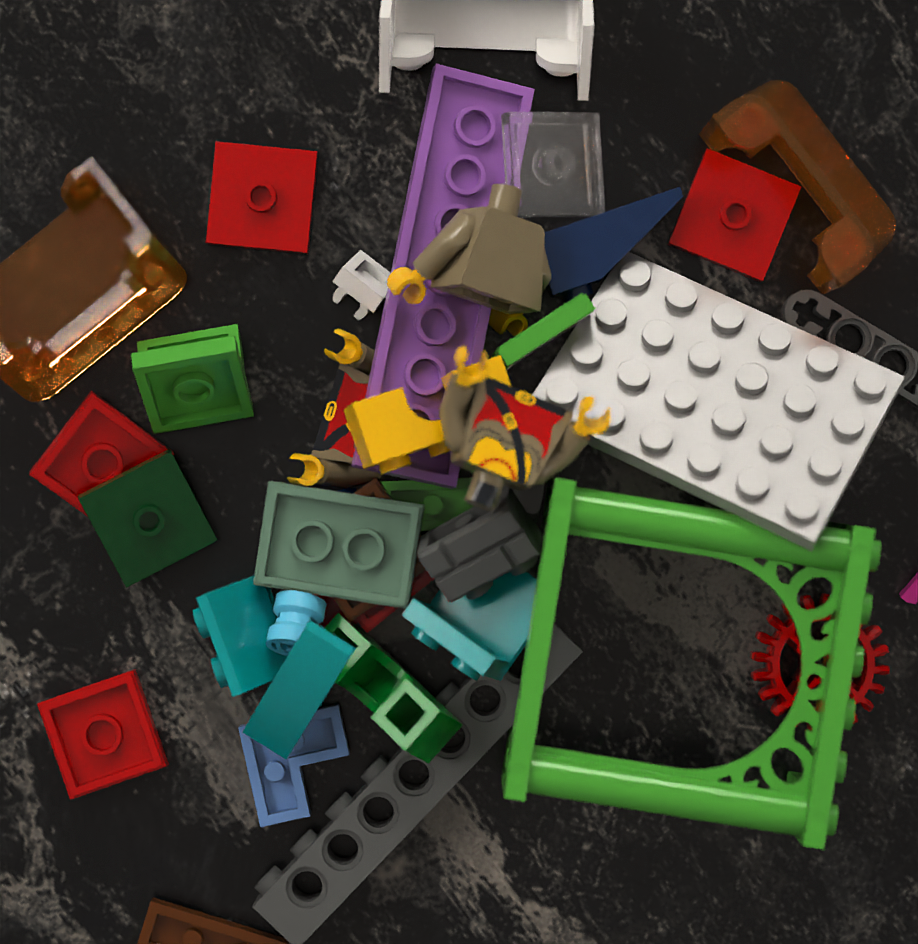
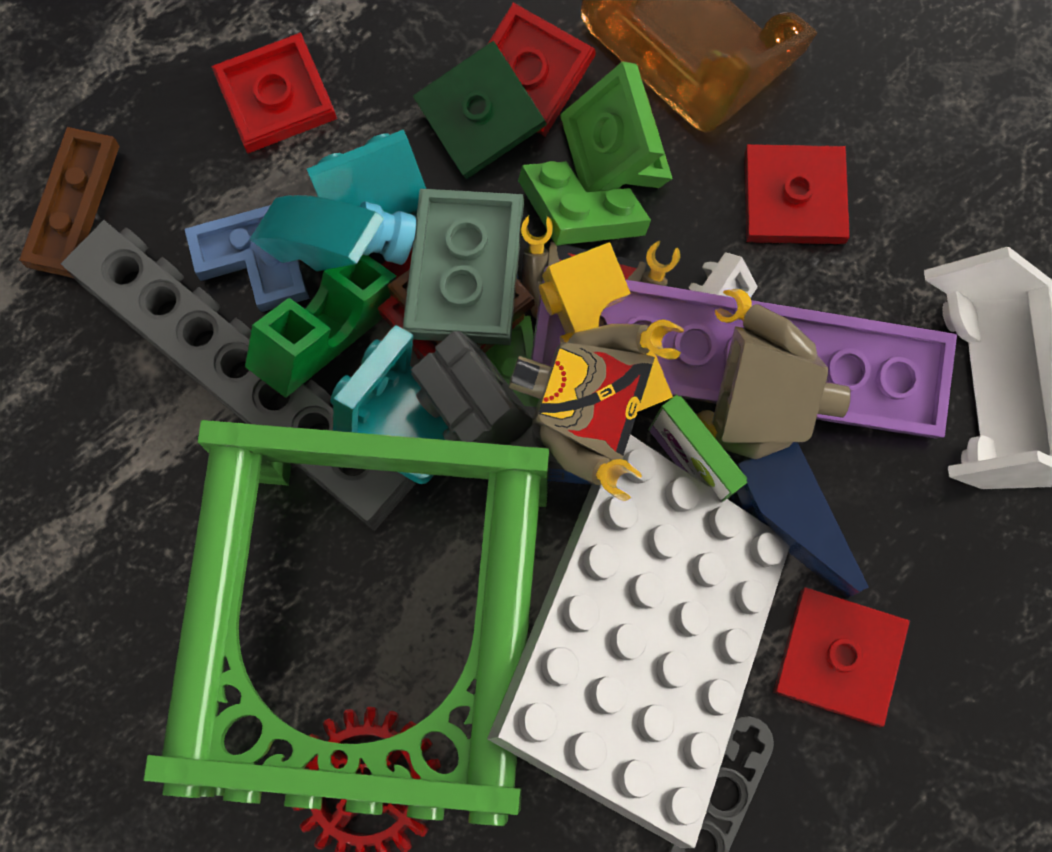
camera: 85 degrees right, 15 degrees down
(277, 426) = (581, 214): none -> bright green plate
(554, 162) = (872, 459): clear plate -> none
(857, 214) = (860, 786): clear orange windscreen -> none

